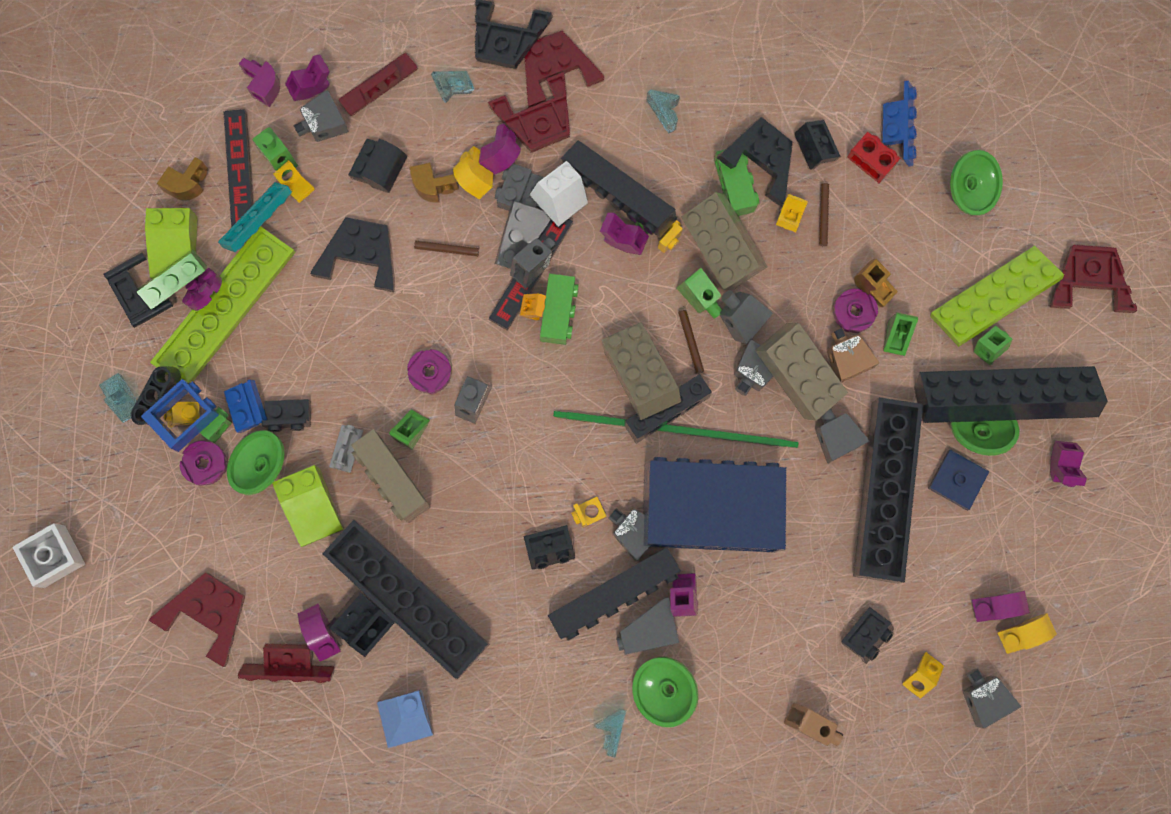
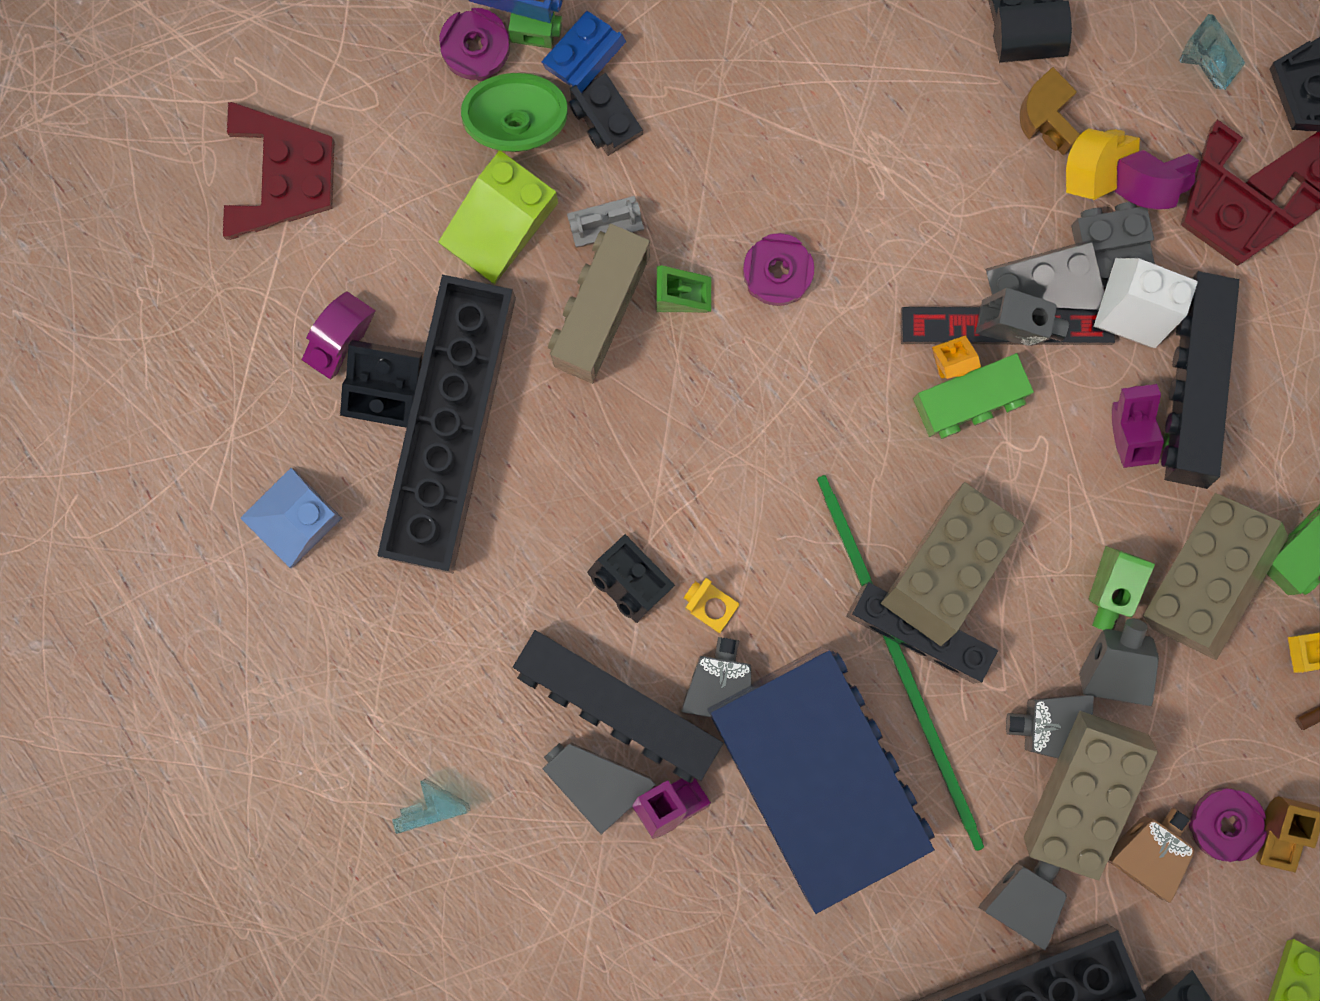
camera: 60 degrees right, 5 degrees up
(286, 663) = (273, 318): dark red bracket -> none
(359, 243) = (902, 68): black wing -> none
(446, 248) = (967, 190): reddish brown bar -> none
(471, 399) = (773, 351): dark grey torso -> none
(655, 698) = (505, 852): bright green dish -> none
(670, 240) = (1172, 497): yellow bracket -> none
(691, 342) = (1039, 611): reddish brown bar -> none
(899, 333) = (1233, 909): bright green slope -> none

